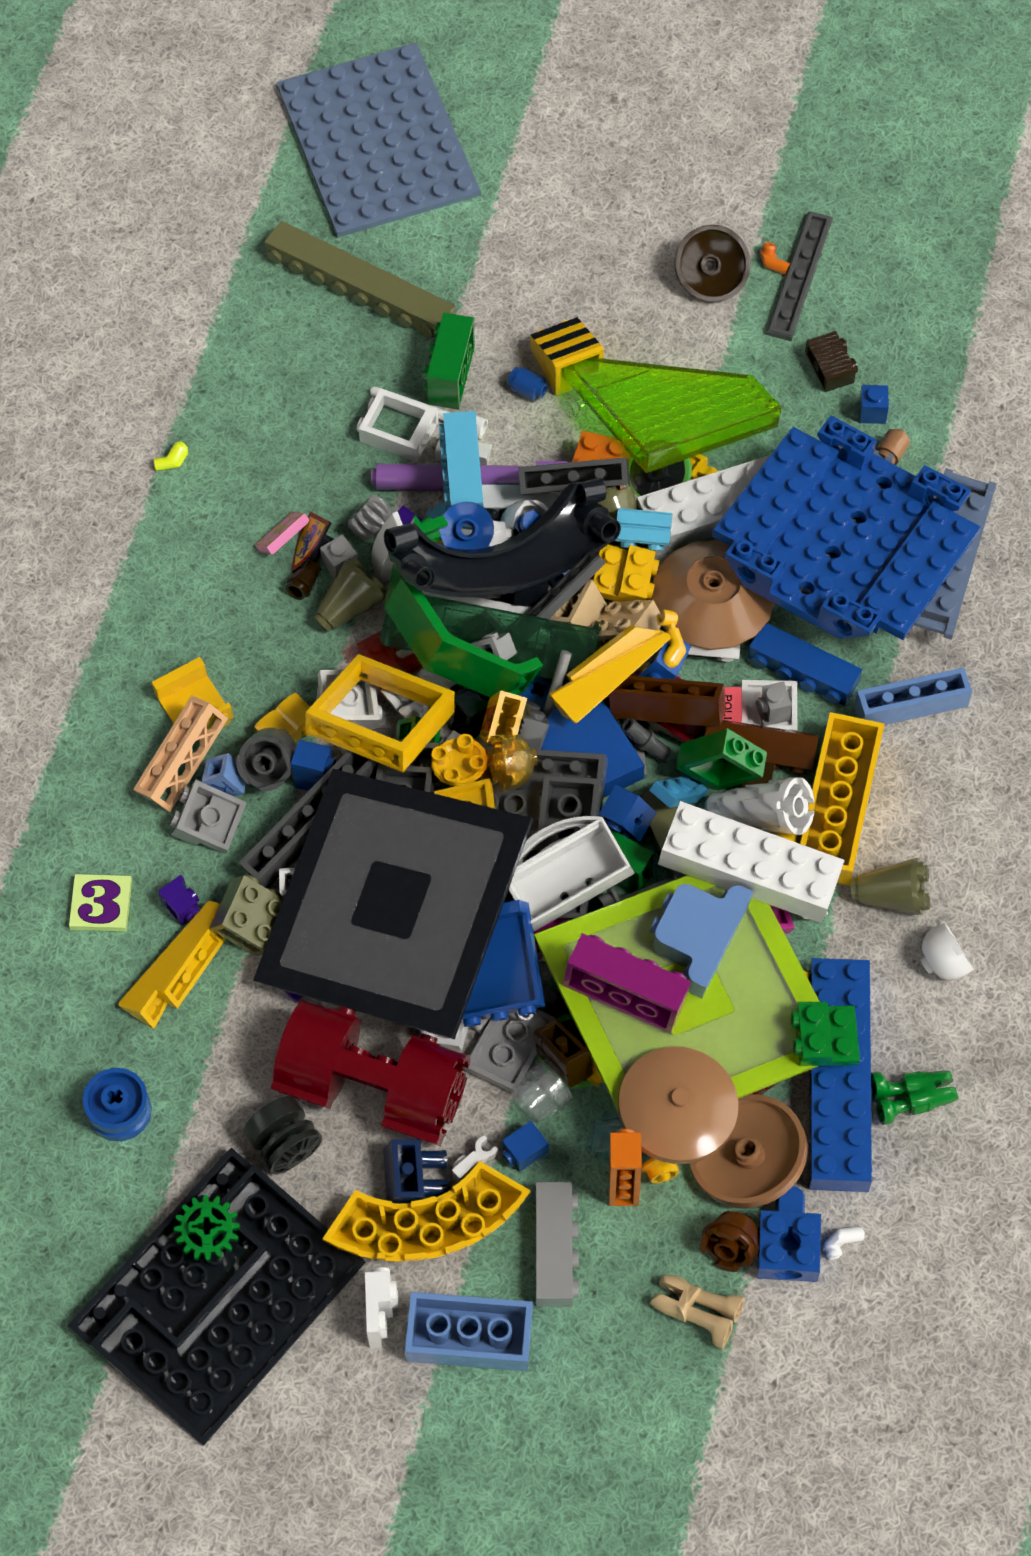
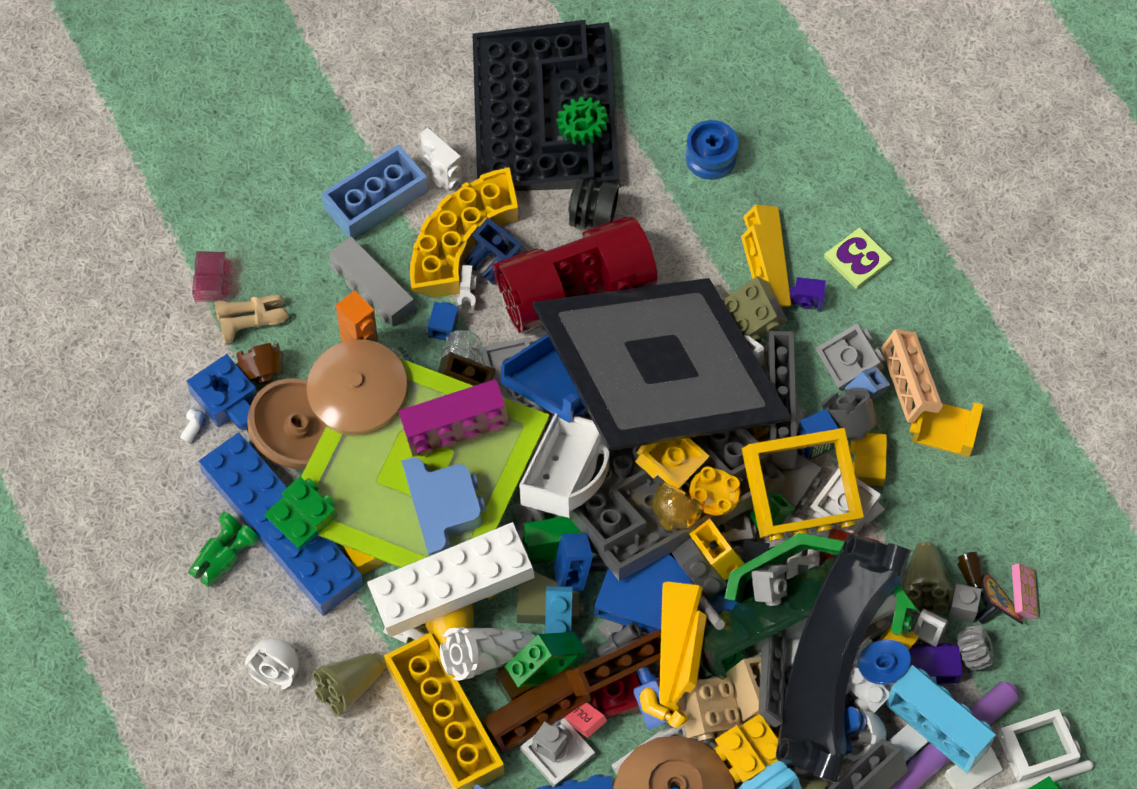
camera: 135 degrees right, 0 degrees up
(701, 1381) = (210, 276): none -> clear pink brick

